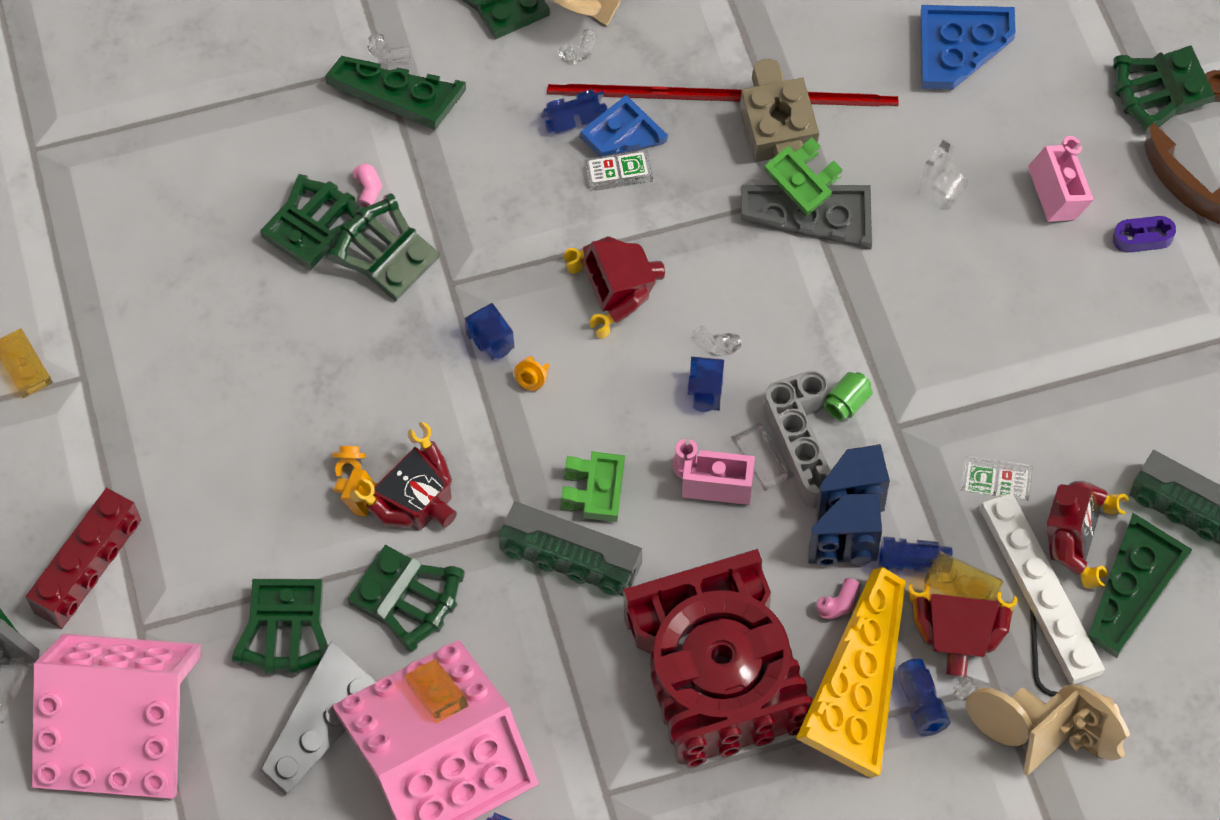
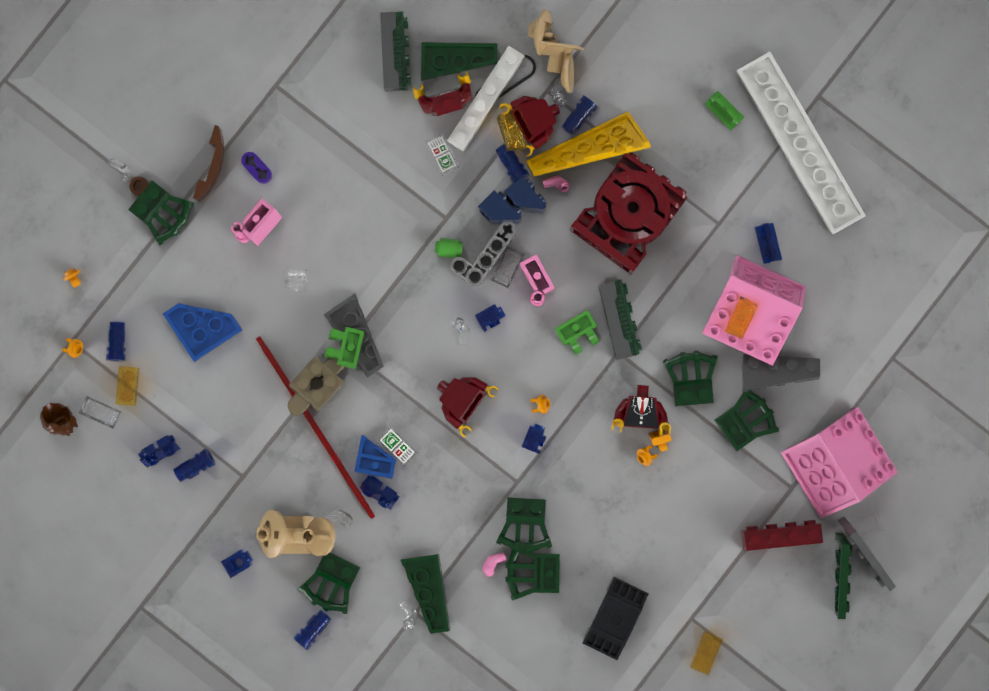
camera: 125 degrees left, 25 degrees up
(168, 276) = (615, 618): none -> black plate

